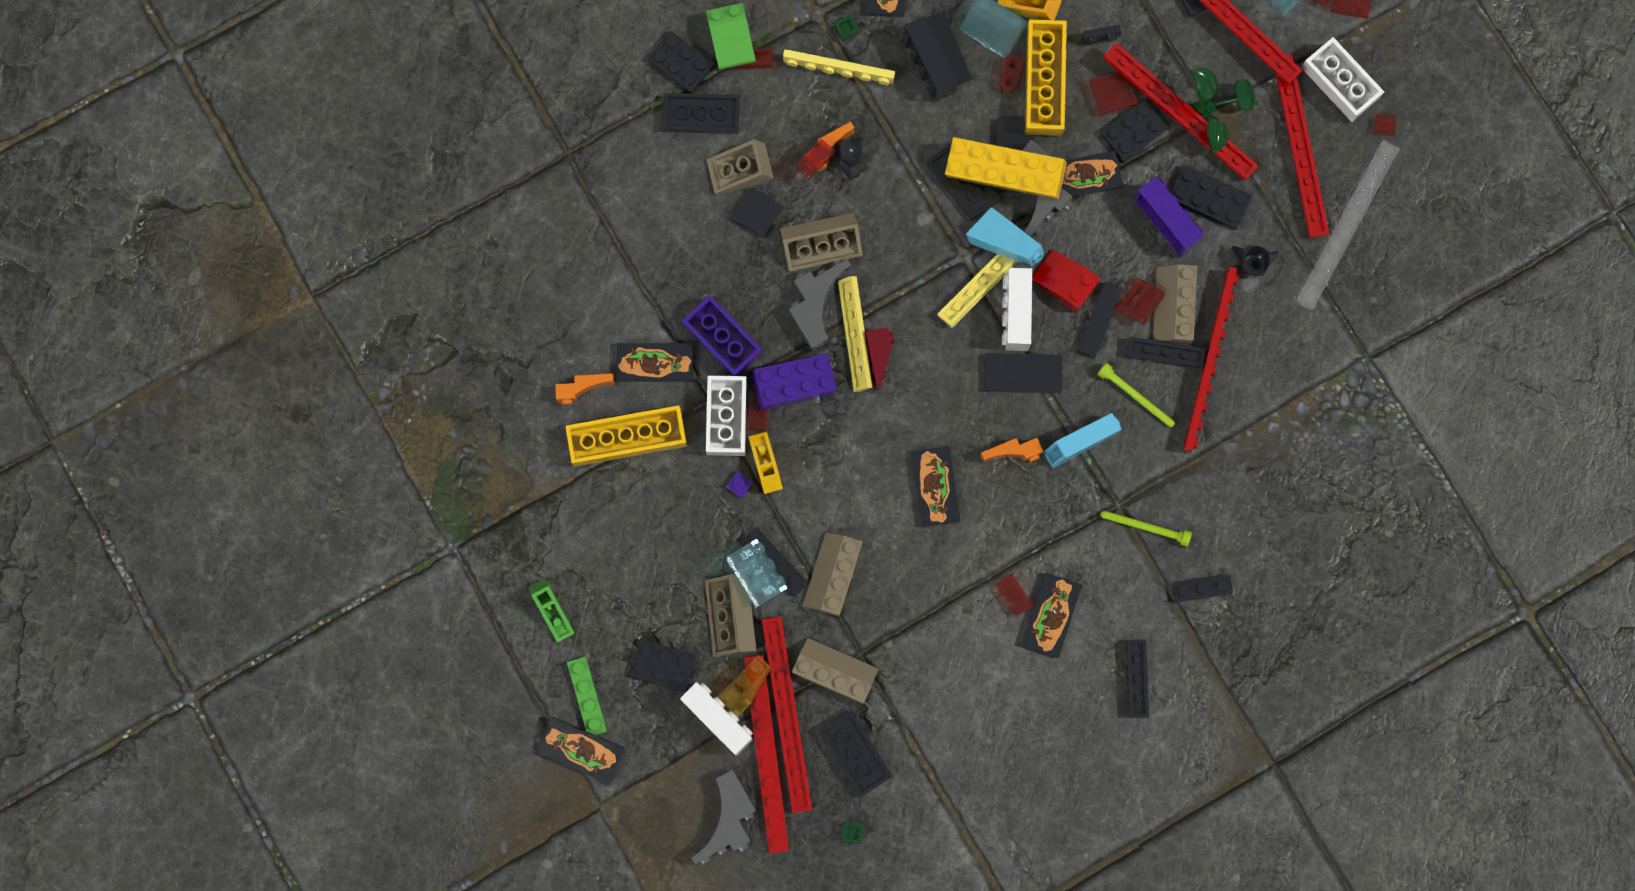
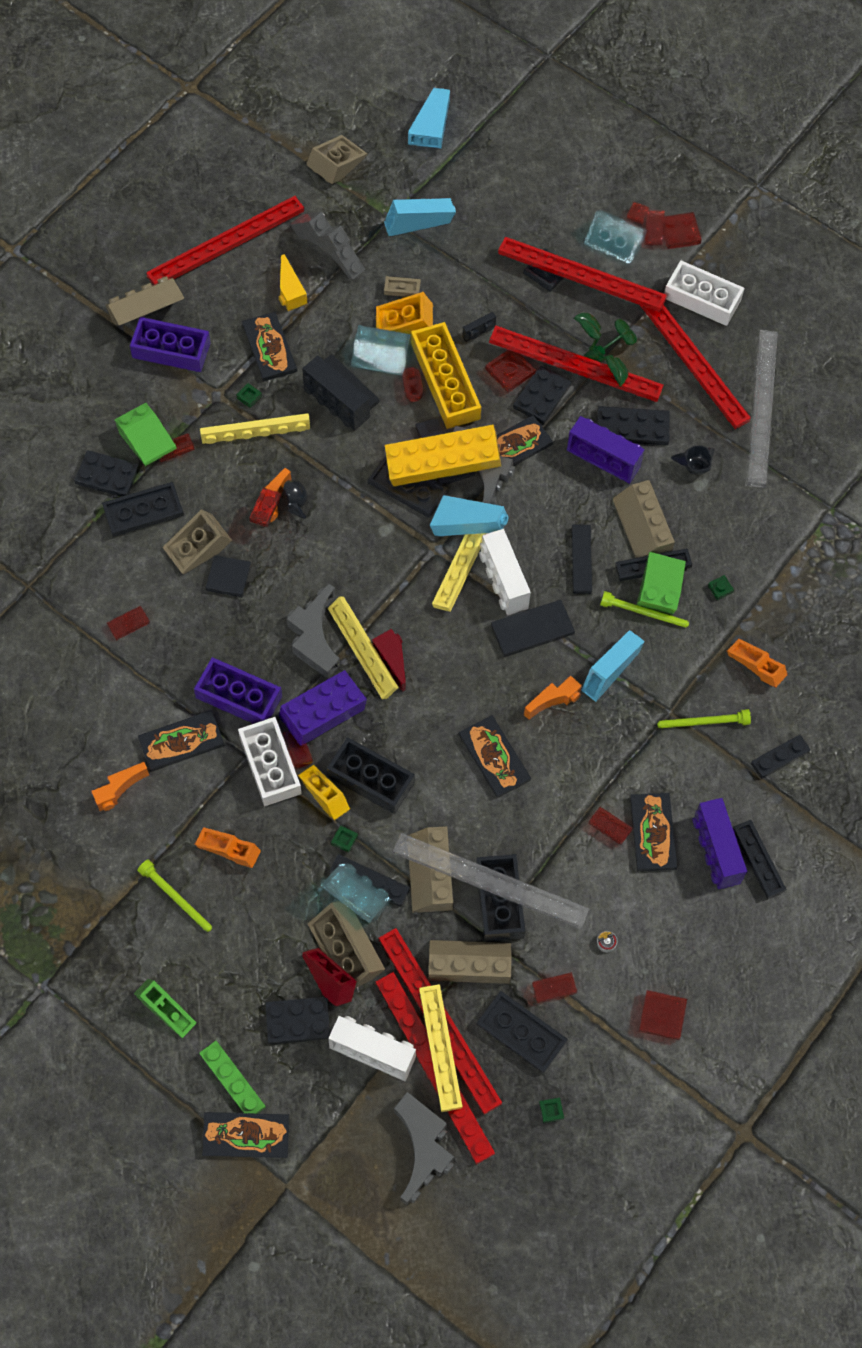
camera: 25 degrees left, 15 degrees down
(581, 477) = (147, 869): none -> lime piece
(626, 436) = (179, 814): yellow brick -> none
(647, 226) = (128, 623): none -> clear red plate
(659, 482) = (228, 846): none -> orange slope
(705, 640) = (330, 977): none -> dark red slope
(739, 484) = (306, 822): dark purple plate -> none
(745, 686) = (388, 1006): clear yellow slope -> none
(767, 514) = (344, 839): none -> dark green plate
(776, 741) = (440, 1048): none -> light yellow plate
(813, 464) = (371, 775): none -> black brick
(821, 242) = (298, 579): dark tan slope -> none
(880, 610) = (491, 881): none -> clear plate
(884, 625) = (500, 916): none -> black brick
(900, 725) = (554, 987): none -> clear red plate
(965, 701) = (607, 941): none -> tile
(986, 787) = (663, 1015): none -> clear red plate
(1065, 280) = (538, 535): red slope -> none
(1105, 653) = (719, 844): none -> dark purple brick
(1144, 304) = (616, 529): clear red plate -> none
(1164, 375) = (661, 583): none -> bright green slope
(1212, 352) = (699, 564): red plate -> none
(1221, 399) = (720, 587): none -> dark green plate
(1221, 488) = (758, 662): none -> orange slope
(1384, 125) = (755, 319): clear red plate -> none

